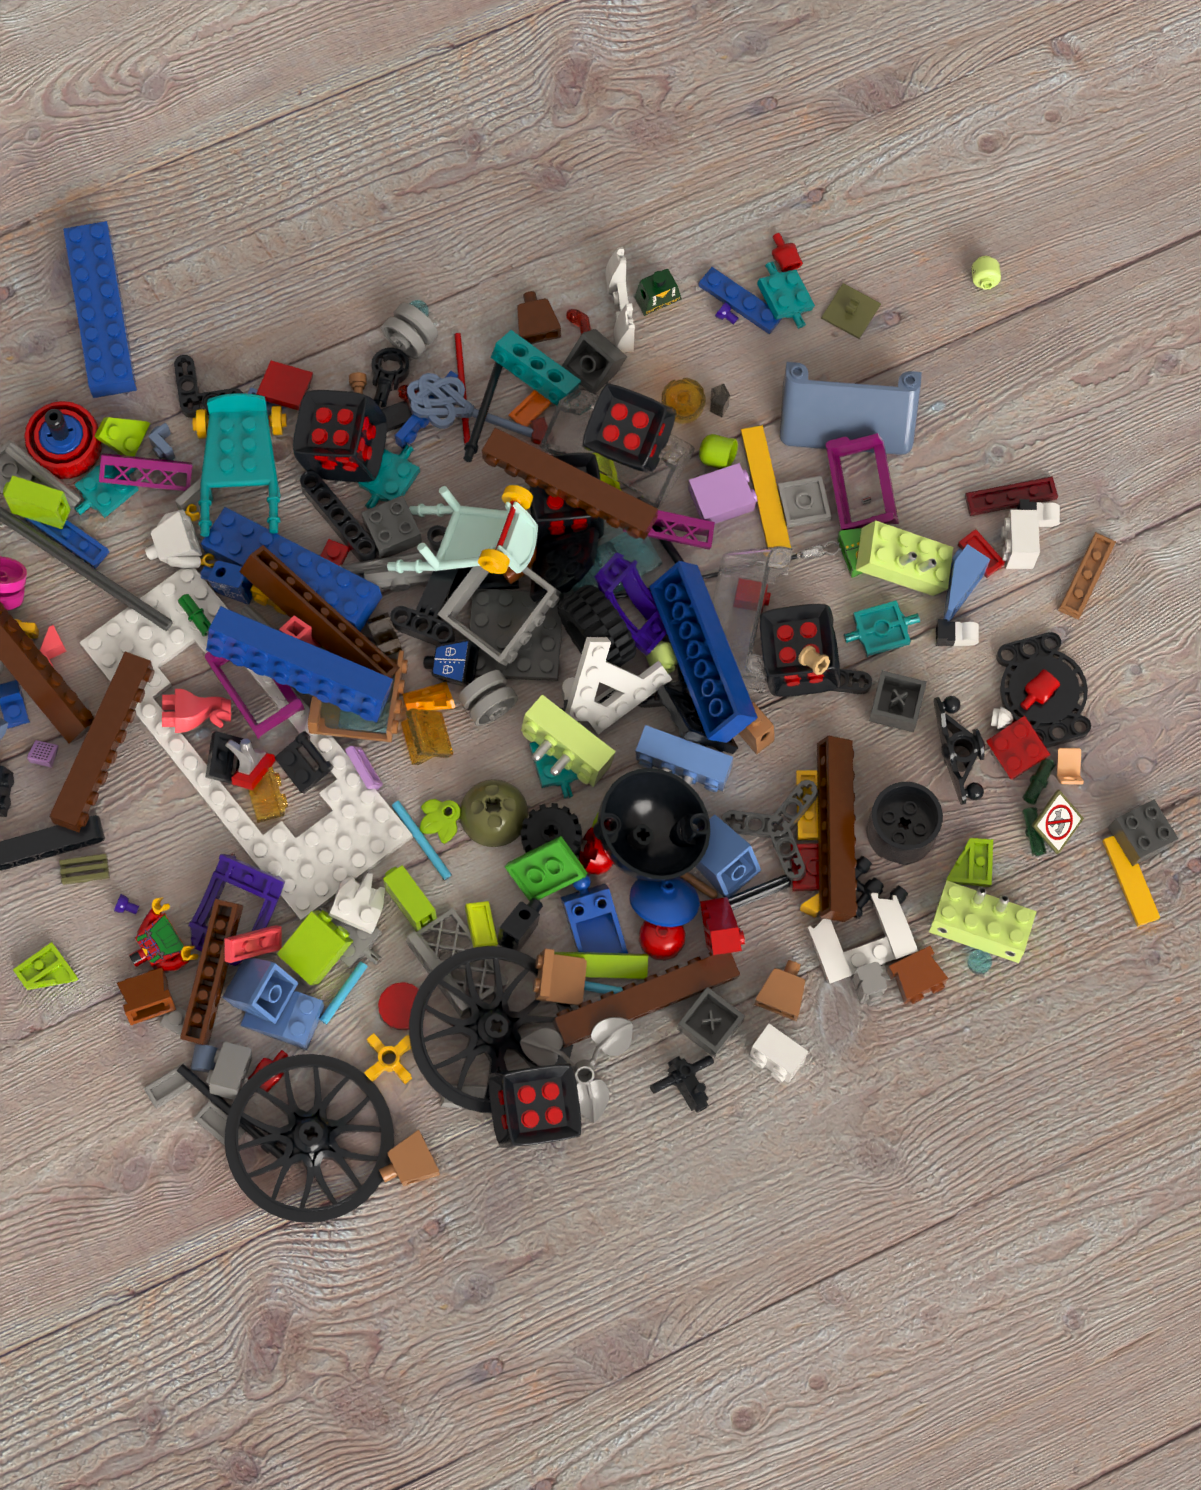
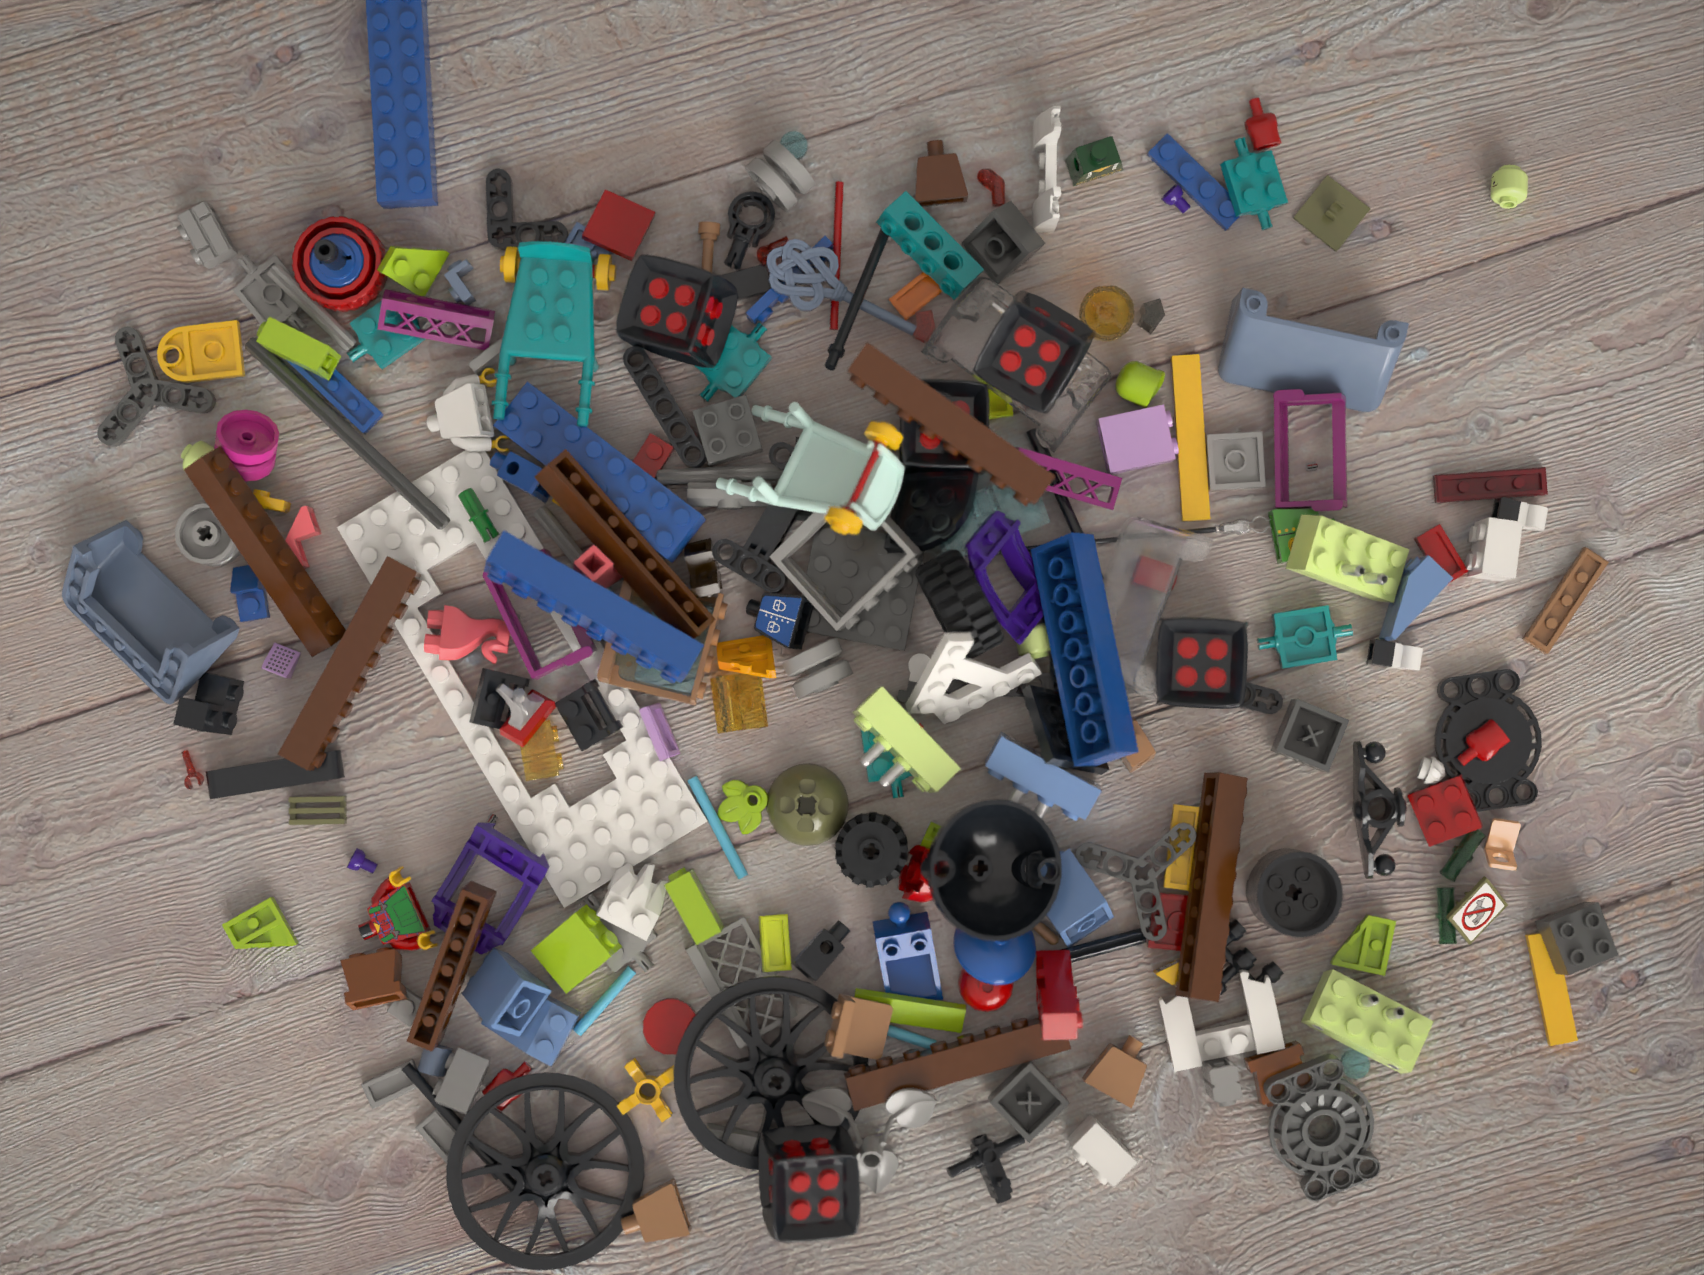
camera: 15 degrees right, 15 degrees up
(253, 943) = (503, 938): coral tile -> none
(546, 869) = (859, 895): bright green tile -> none
(814, 660) = (1218, 695): tan bush -> none
(977, 1029) = (1341, 1149): none -> dark grey piece

